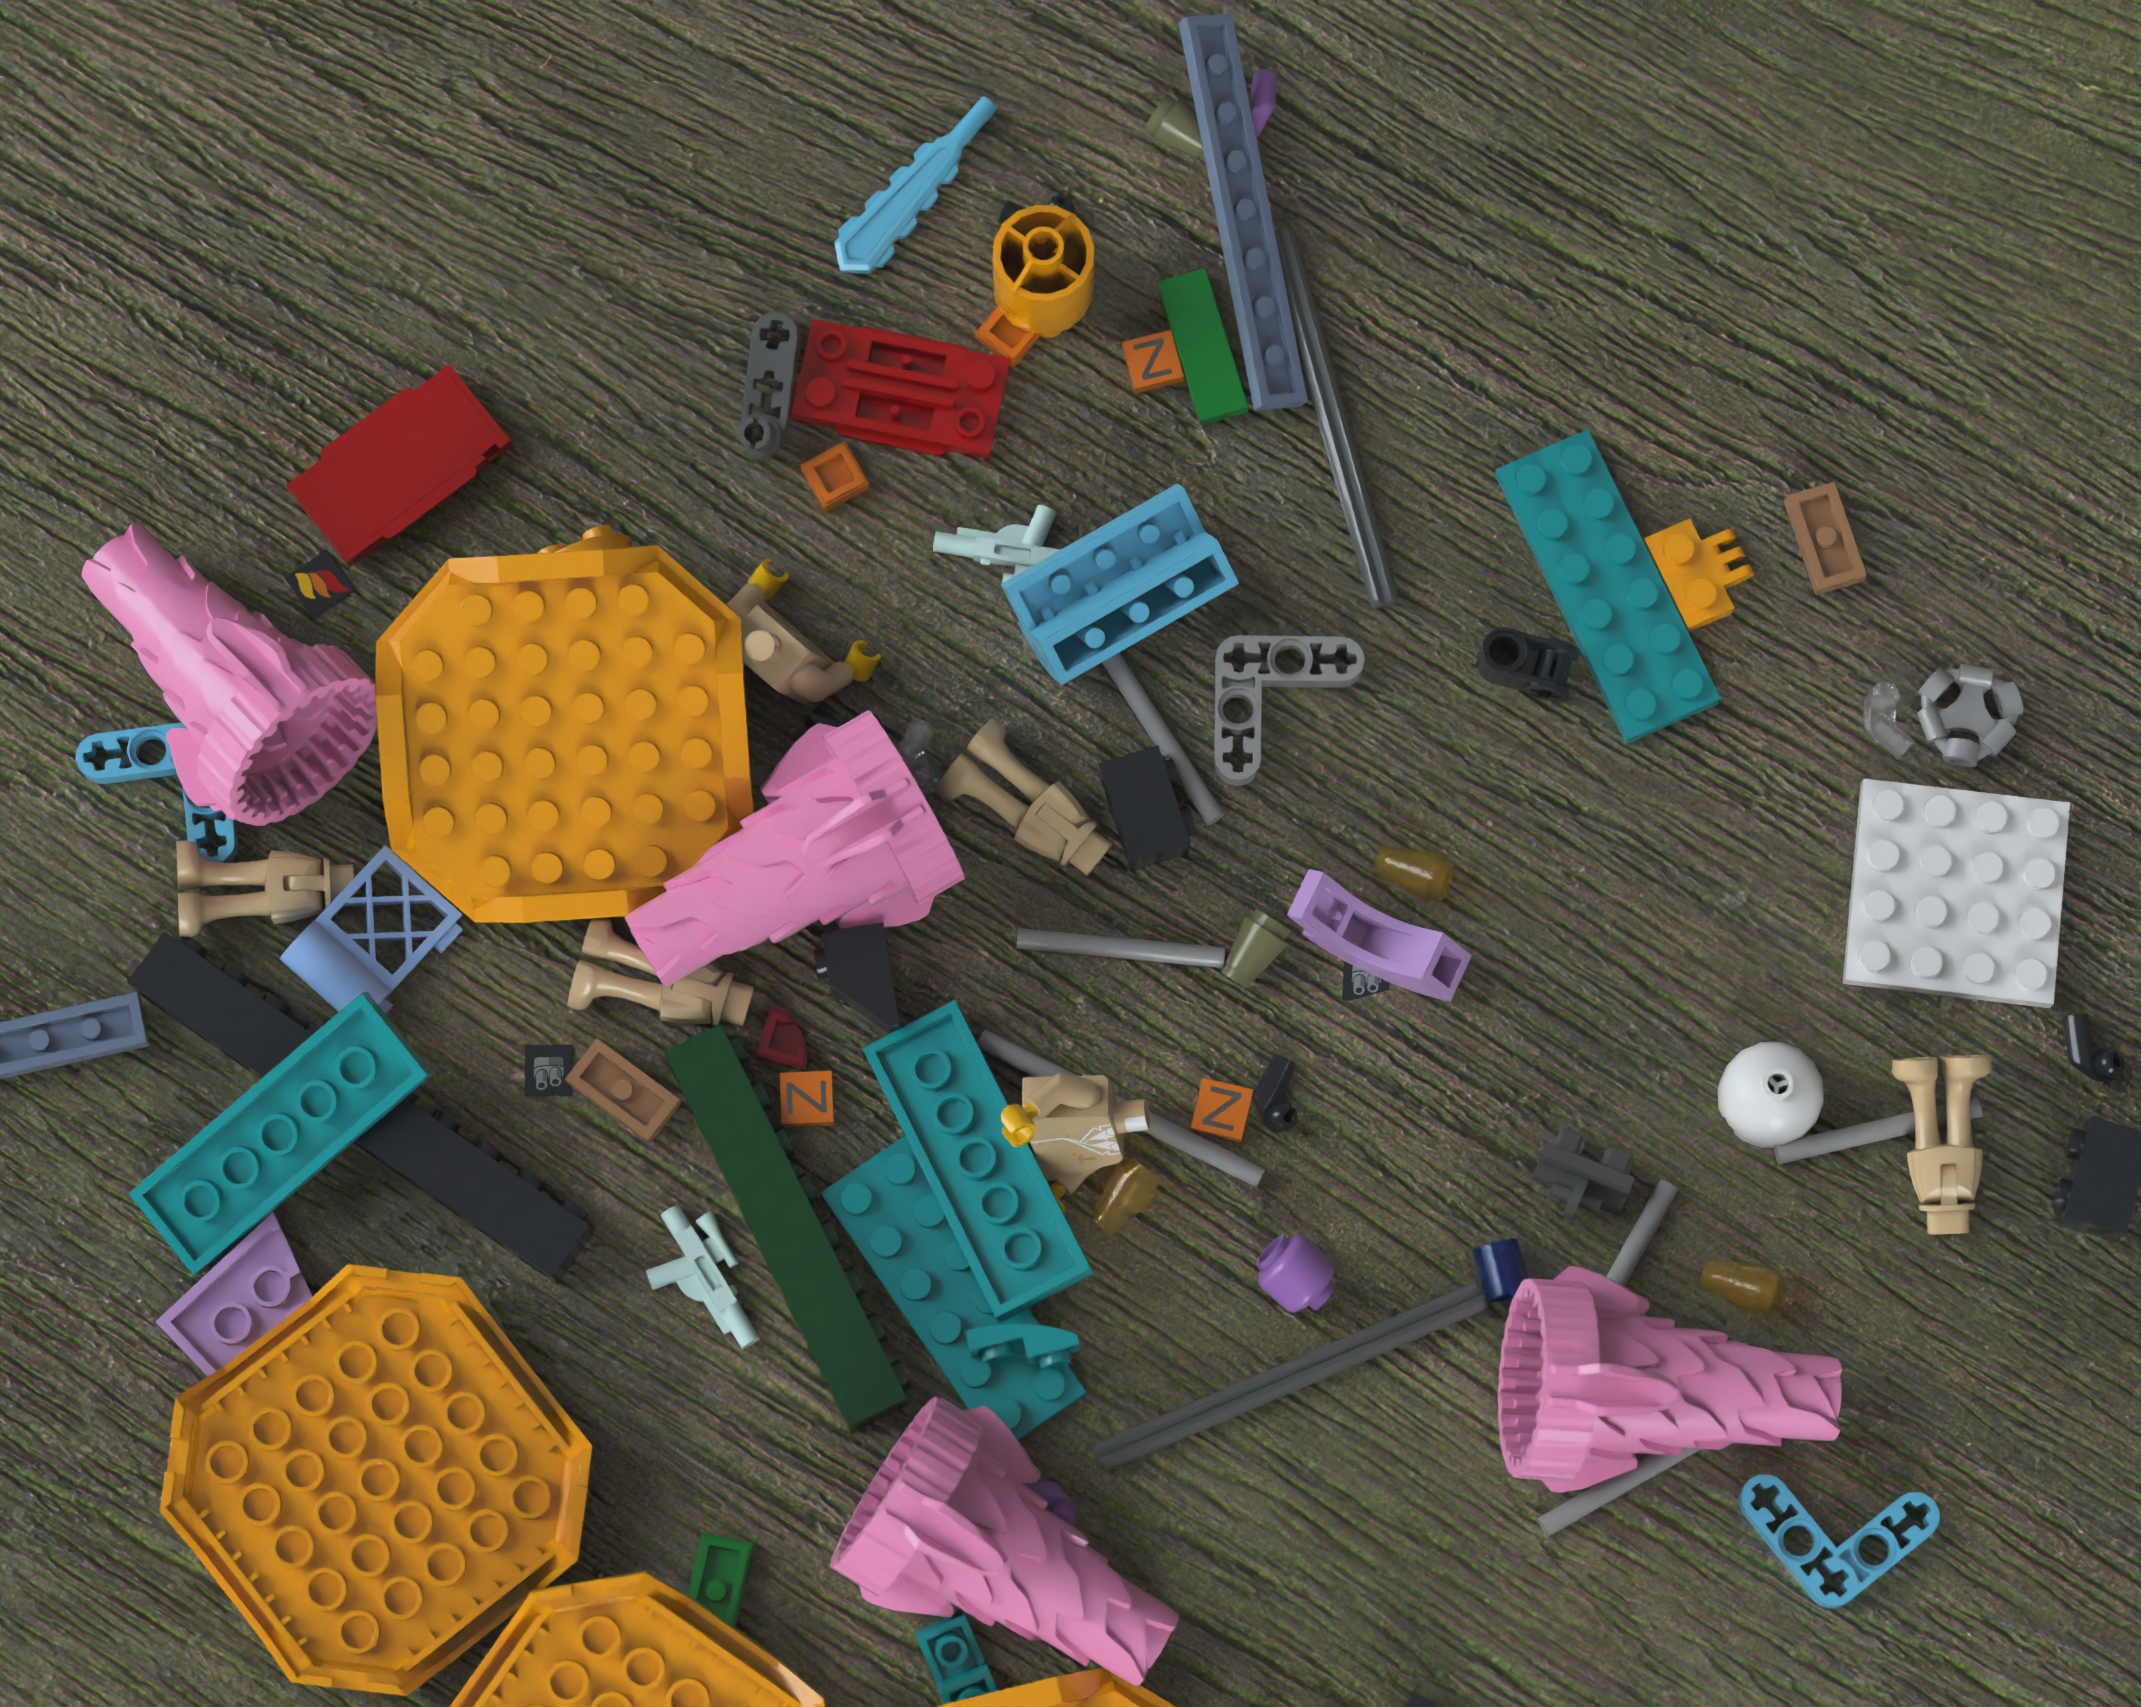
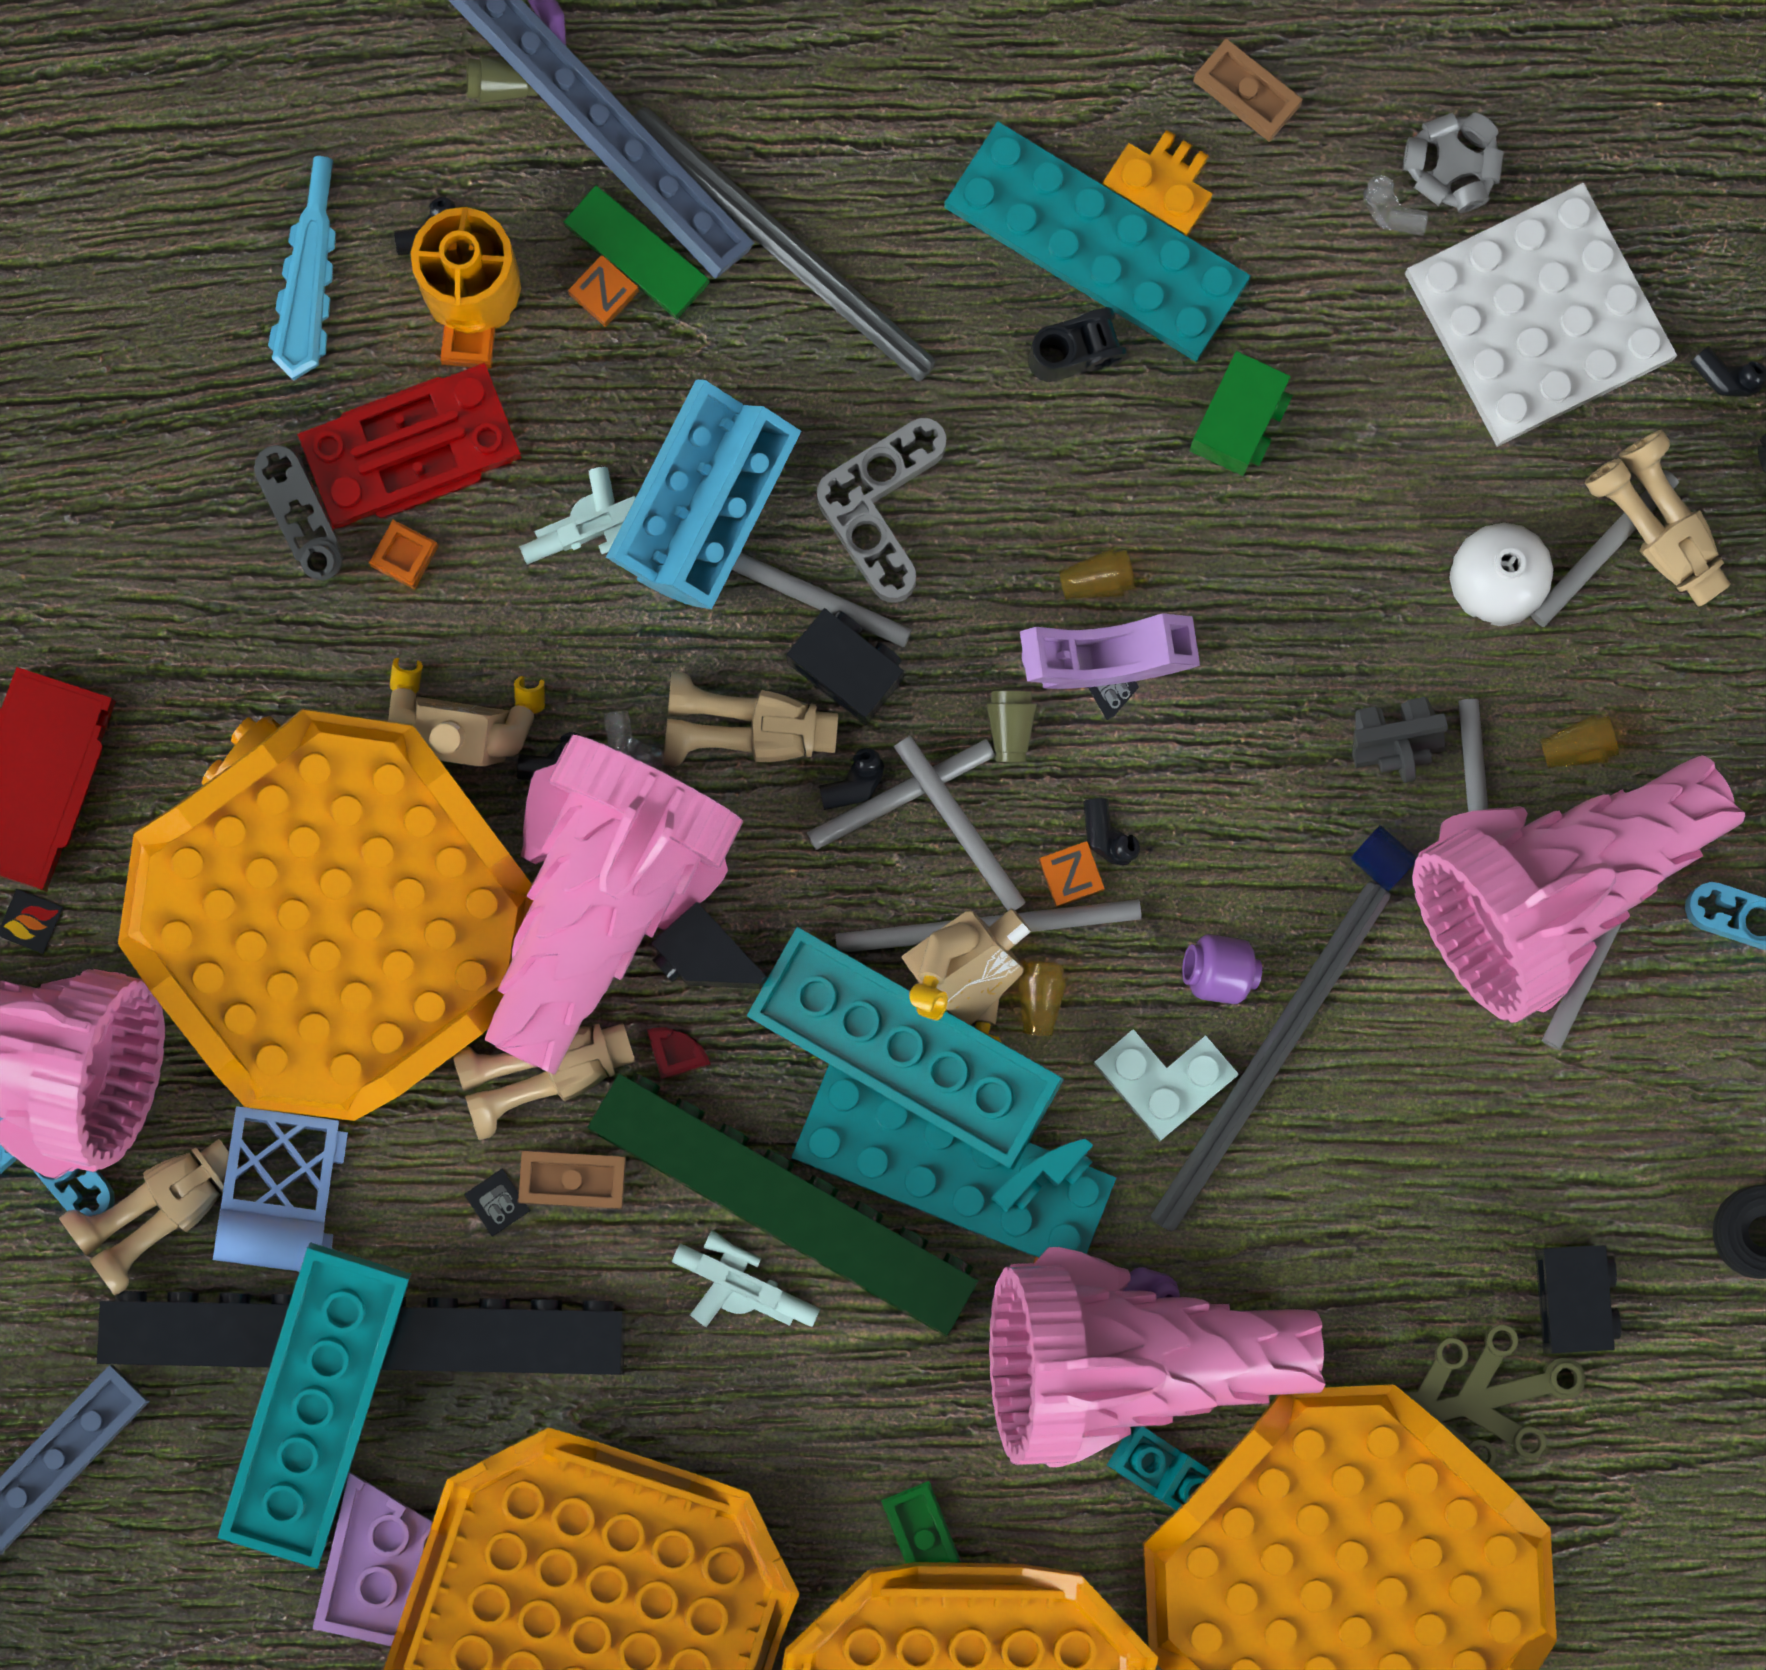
camera: 35 degrees left, 5 degrees up
(806, 1099) = (727, 1086): orange tile -> none
(1090, 915) = (859, 782): none -> black arm
(1153, 1004) = (959, 824): none -> light grey bar
(1177, 1351) = (1162, 1094): none -> light aqua plate
(1631, 811) = (1241, 413): none -> green brick

